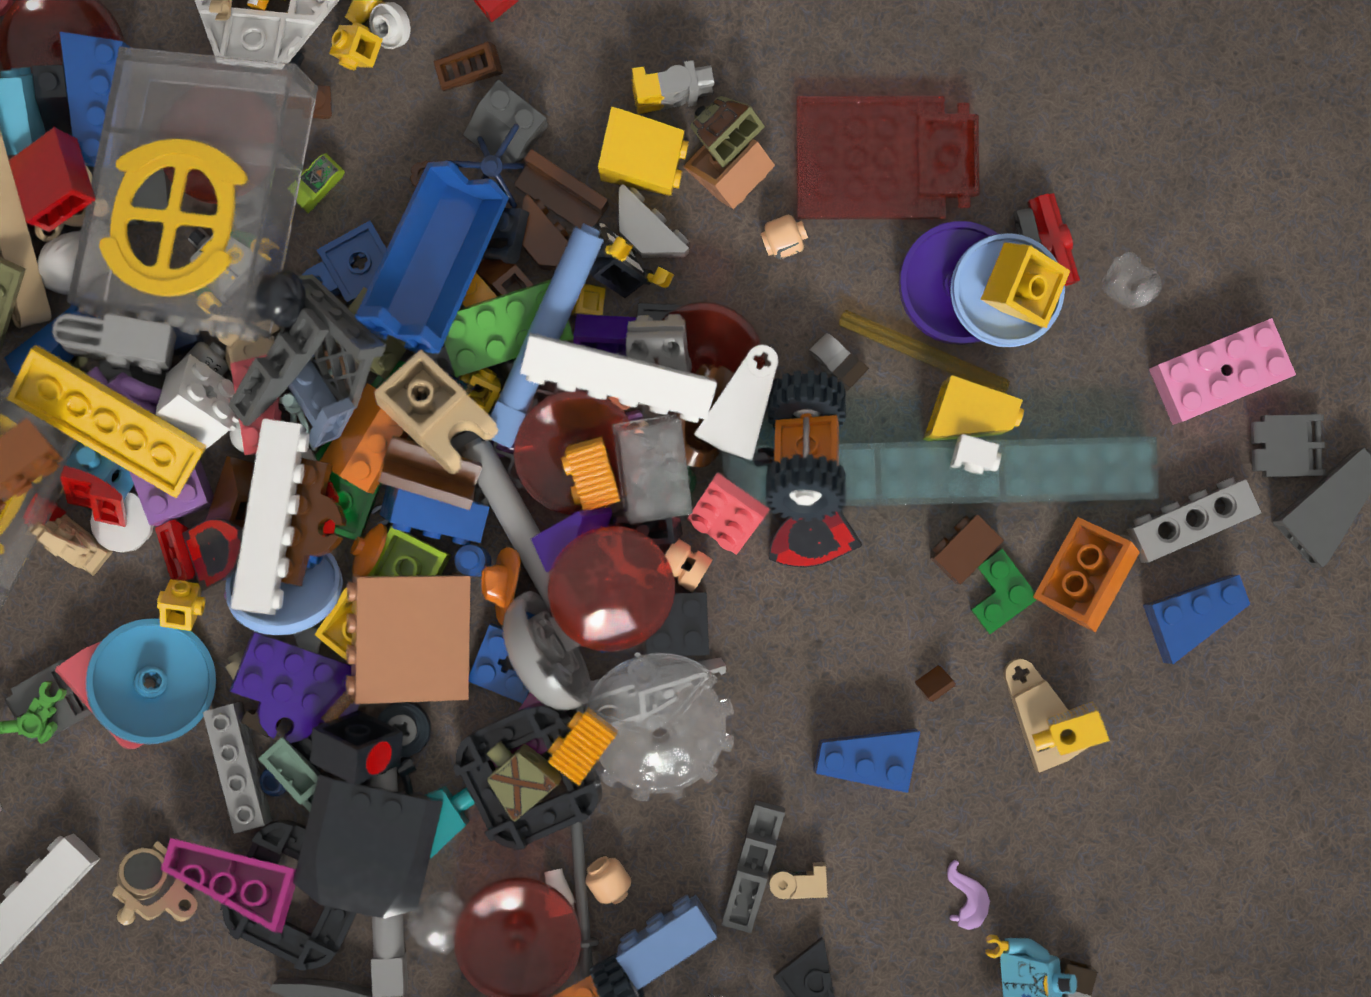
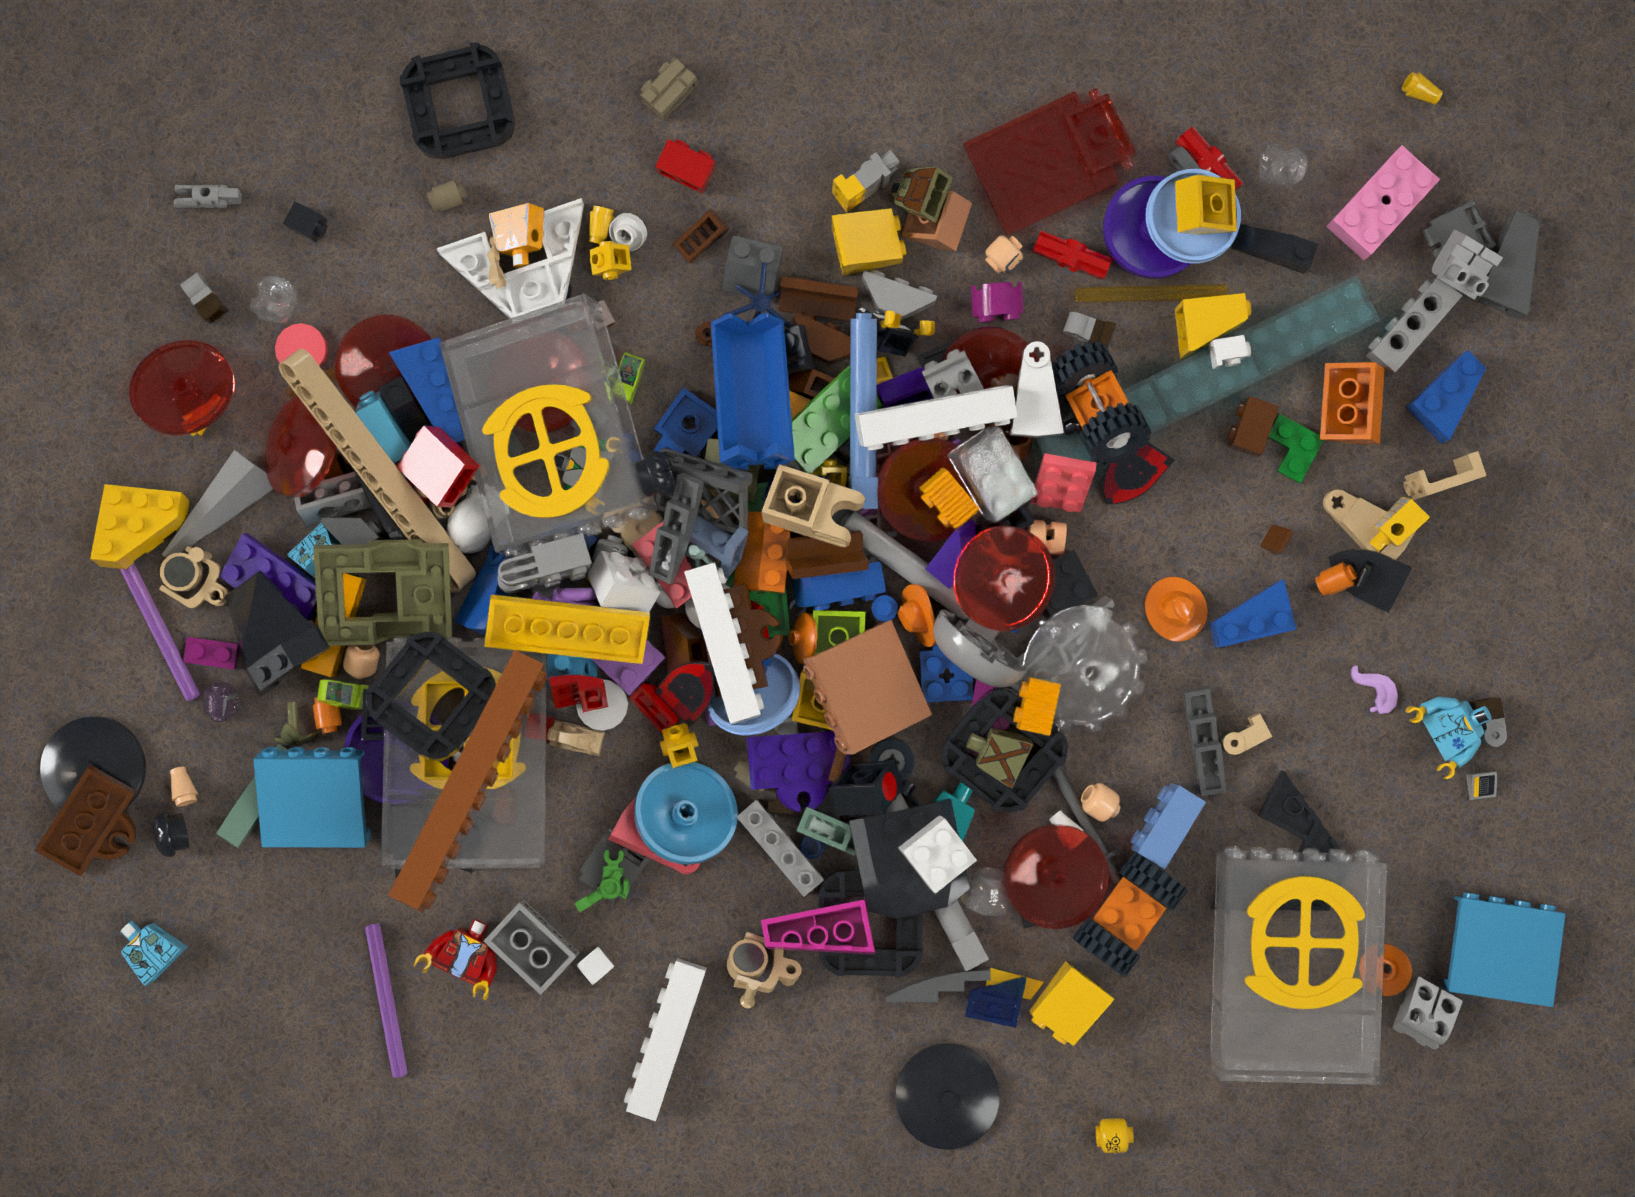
camera: 20 degrees left, 0 degrees up
(393, 857) = (937, 854): none -> white brick
(751, 283) = (997, 300): none -> magenta brick
(790, 708) = (1176, 609): none -> orange hat
(857, 271) = (1072, 254): none -> red piece
(978, 757) = (1336, 579): none -> orange brick
(1018, 771) = (1377, 576): none -> black shield
(1082, 366) = (1276, 247): none -> black slope
(1179, 706) = (1468, 469): none -> tan panel
(1280, 480) = (1465, 264): none -> light grey hips
(1322, 267) = (1421, 88): none -> yellow cone

